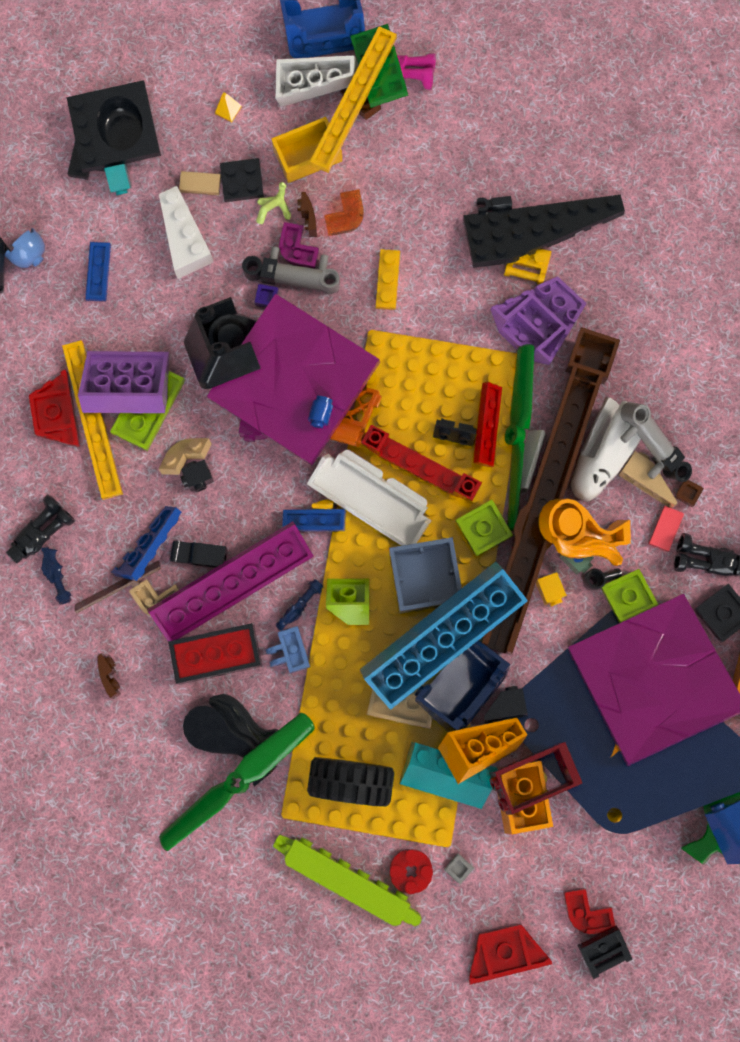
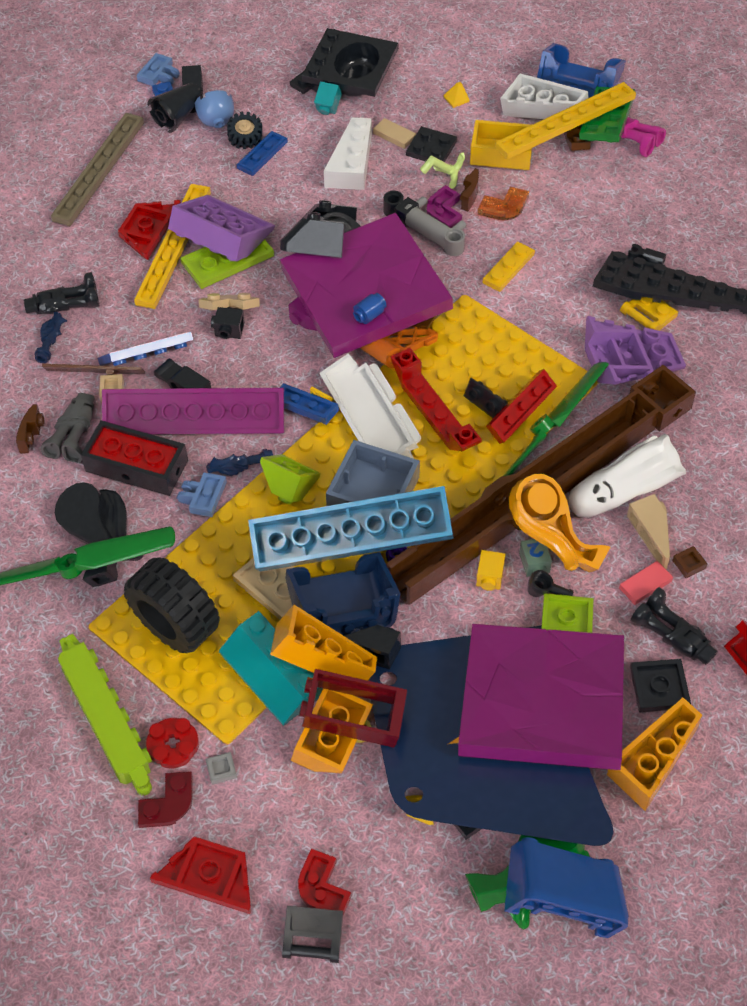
camera: 30 degrees right, 25 degrees down
(68, 257) = (244, 130): none -> black wheel
(138, 643) = (73, 423): none -> dark grey piece
(445, 921) = (173, 807): none -> dark red plate
(484, 528) = (461, 482): lime plate -> none
(665, 455) = (682, 506): light grey piece -> none

